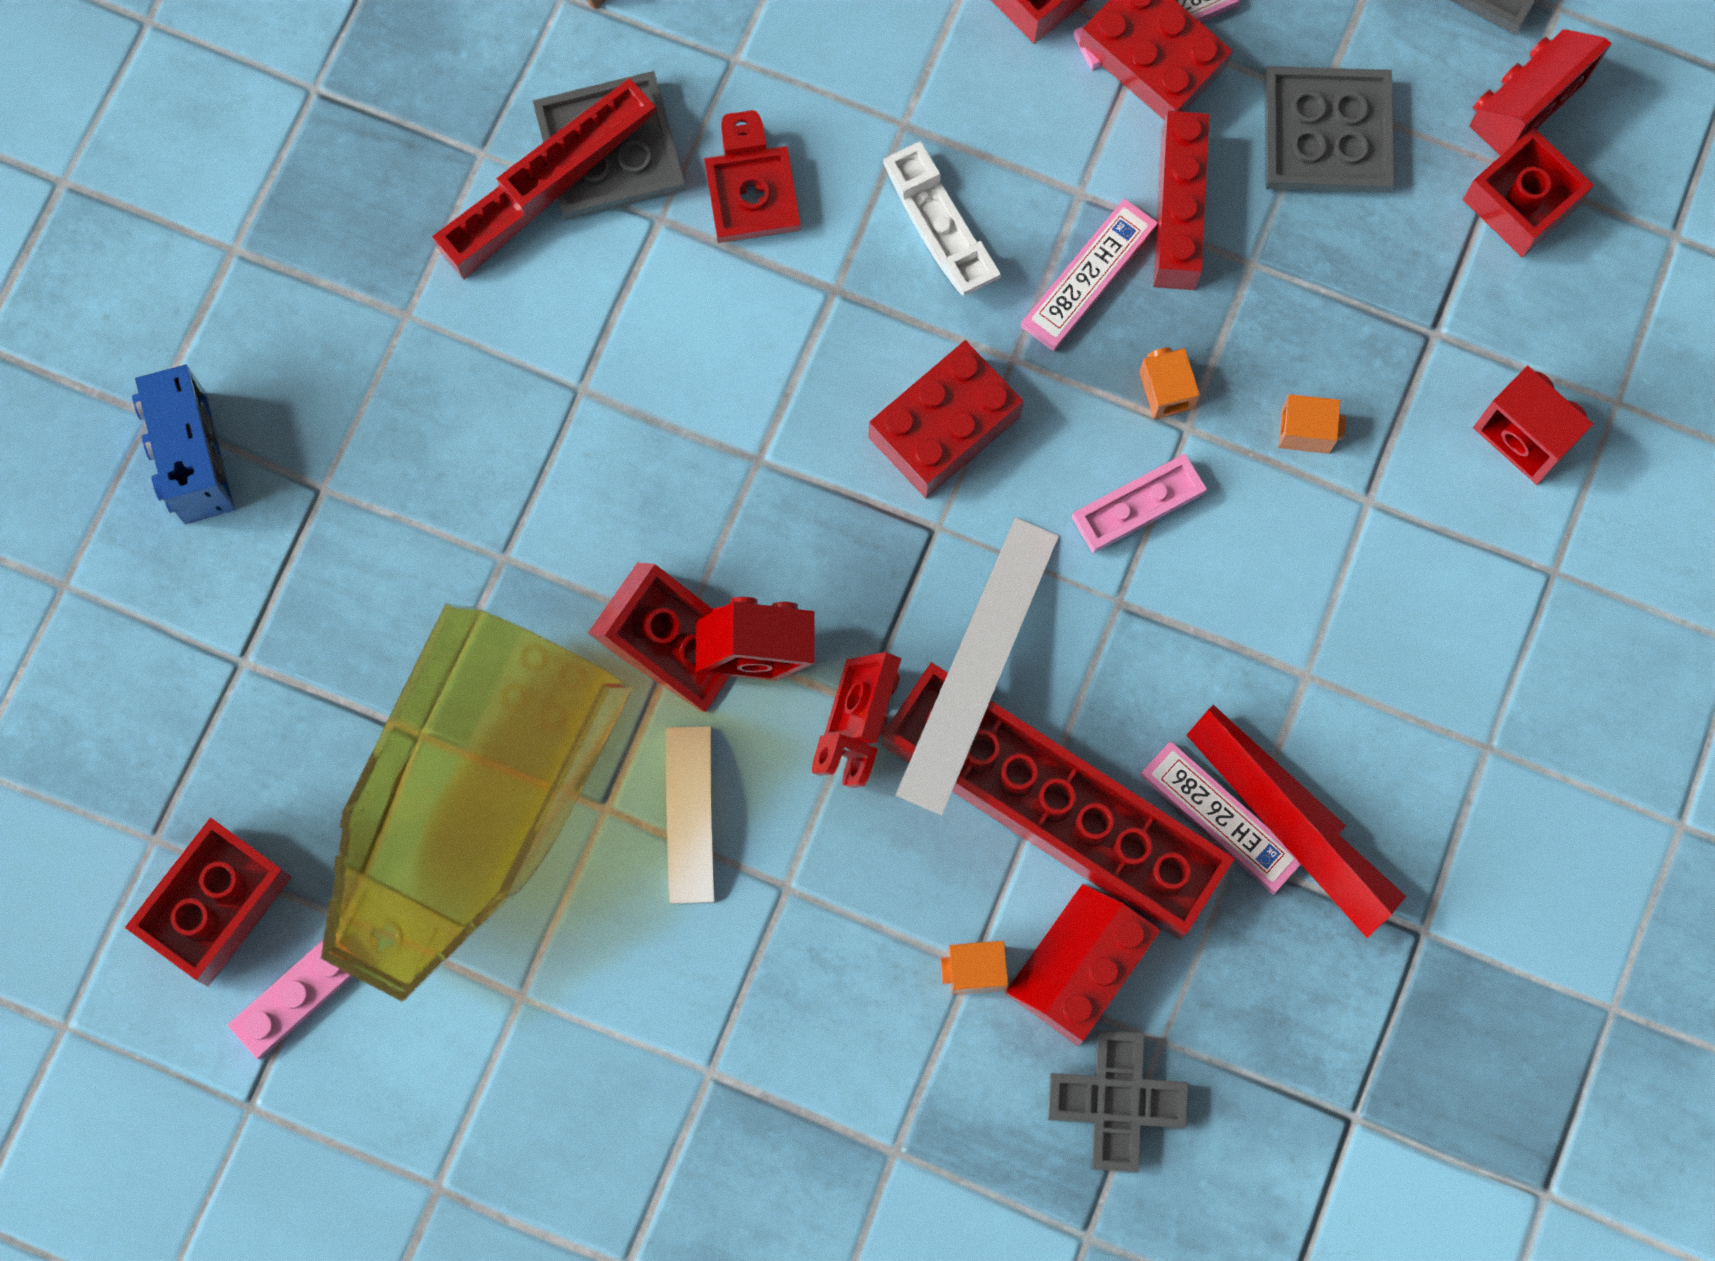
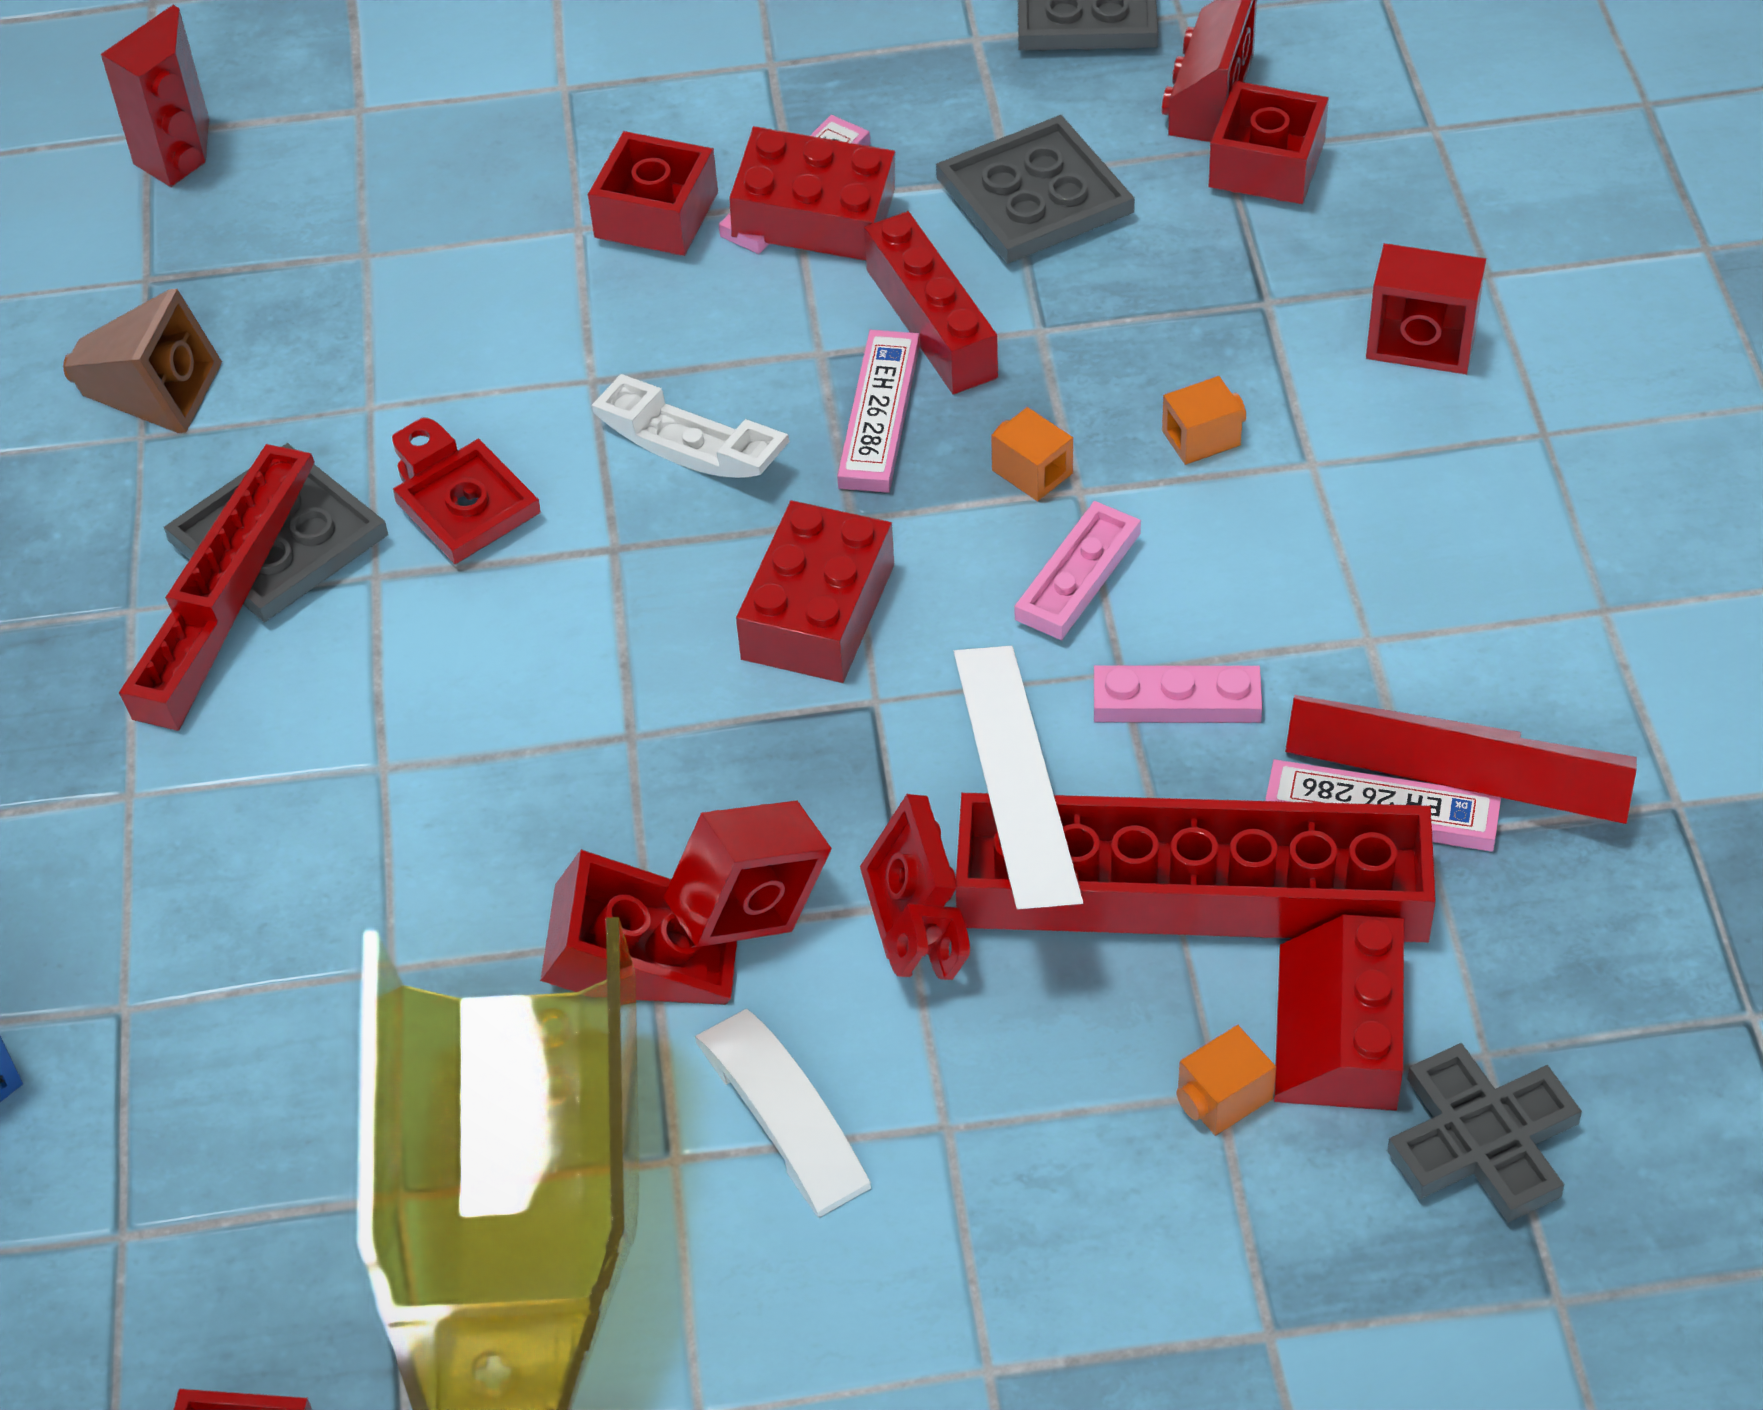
camera: 25 degrees left, 25 degrees down
(1143, 645) = (1177, 694): none -> bright pink plate

